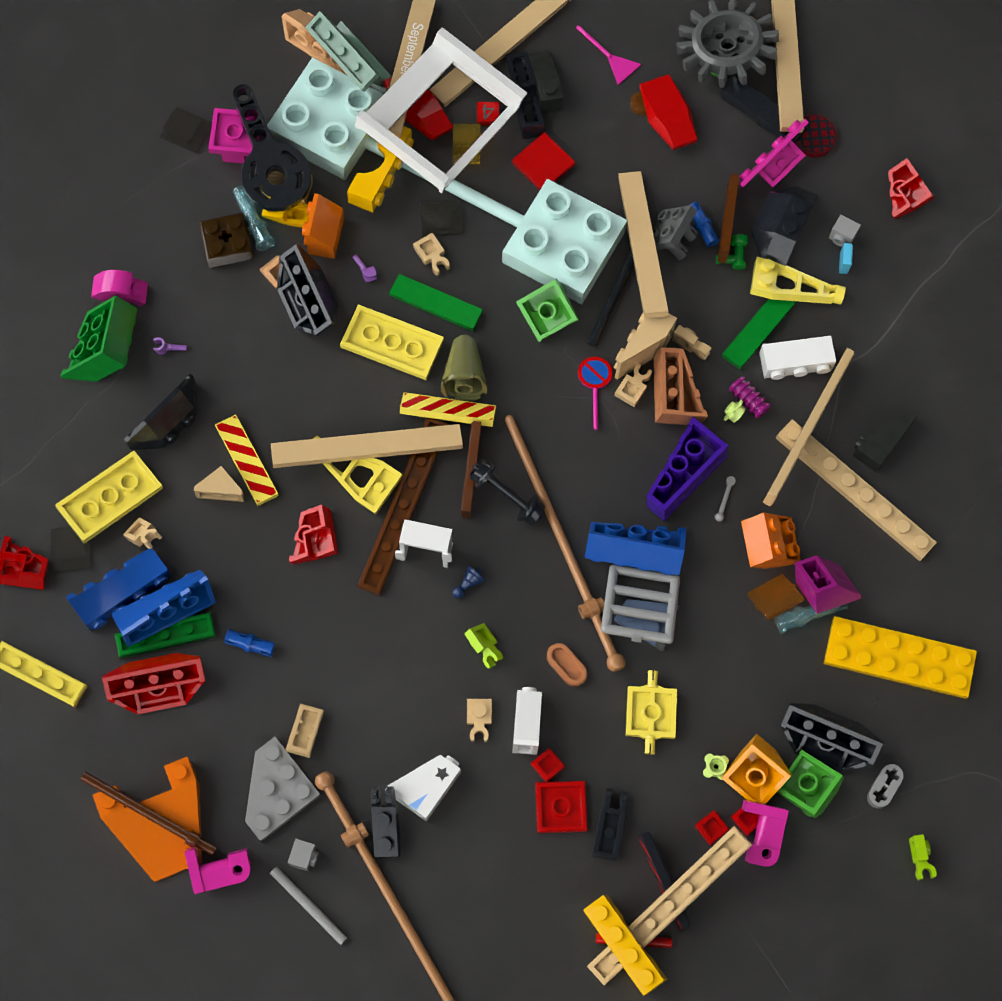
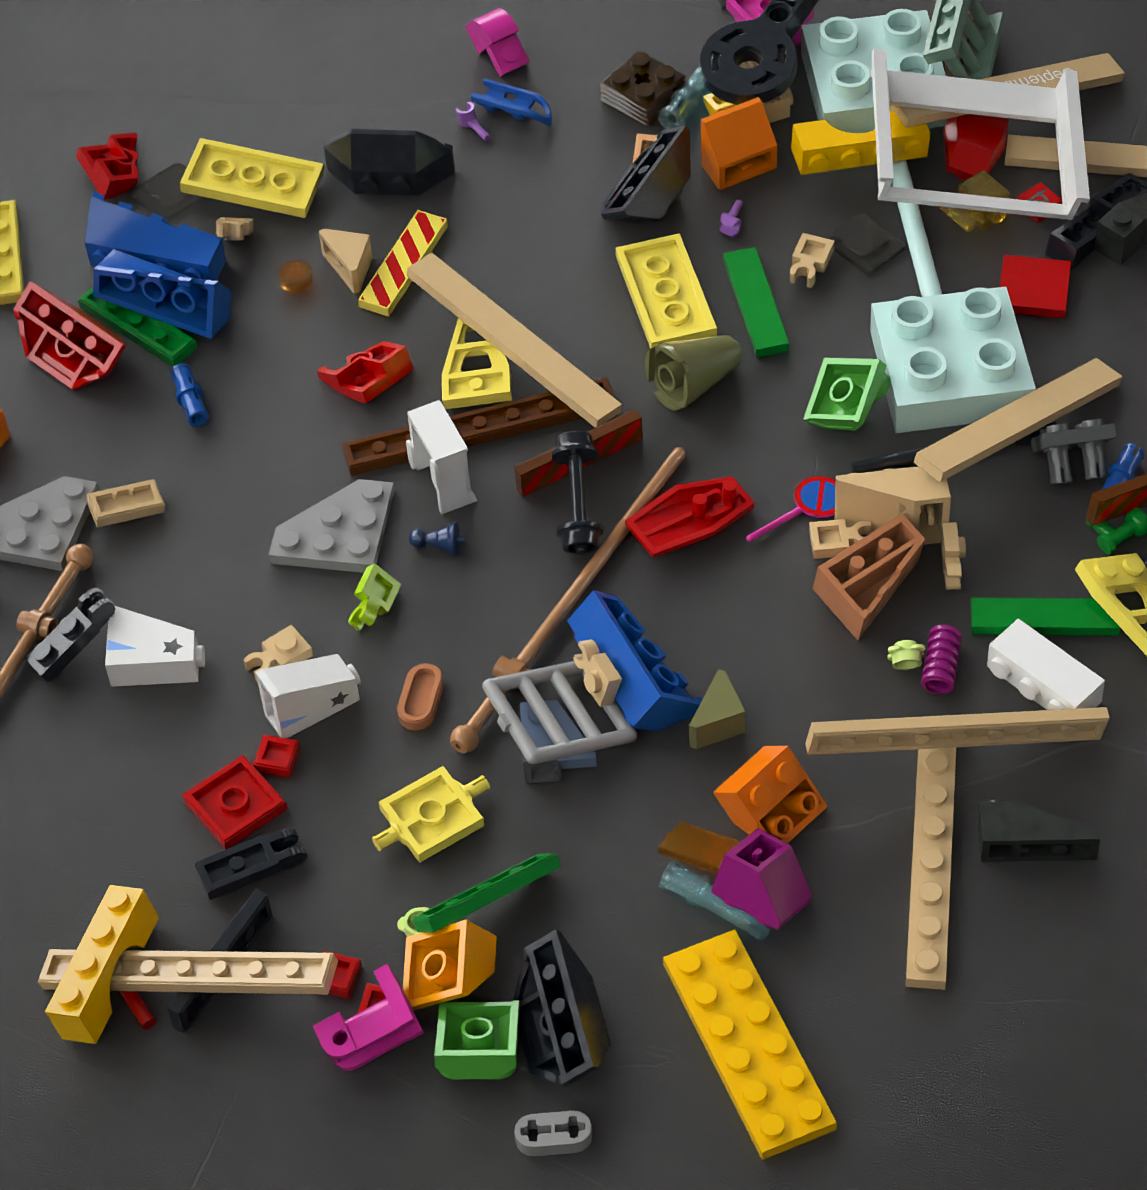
camera: 60 degrees right, 20 degrees down
(103, 341) = (424, 64): green wedge -> none
(178, 317) = (519, 108): none -> blue piece
(205, 524) = (295, 276): none -> clear orange tile
(417, 629) = (338, 531): none -> light grey plate
(447, 409) = (633, 388): light yellow tile -> none
(559, 446) = (689, 514): none -> red piece
(637, 568) = (600, 675): none -> tan plate
(686, 469) = (774, 648): dark purple wedge -> none
(699, 526) = (718, 714): none -> olive slope
(729, 720) = (486, 892): none -> green tile
(730, 481) = (813, 715): light grey hinge -> none

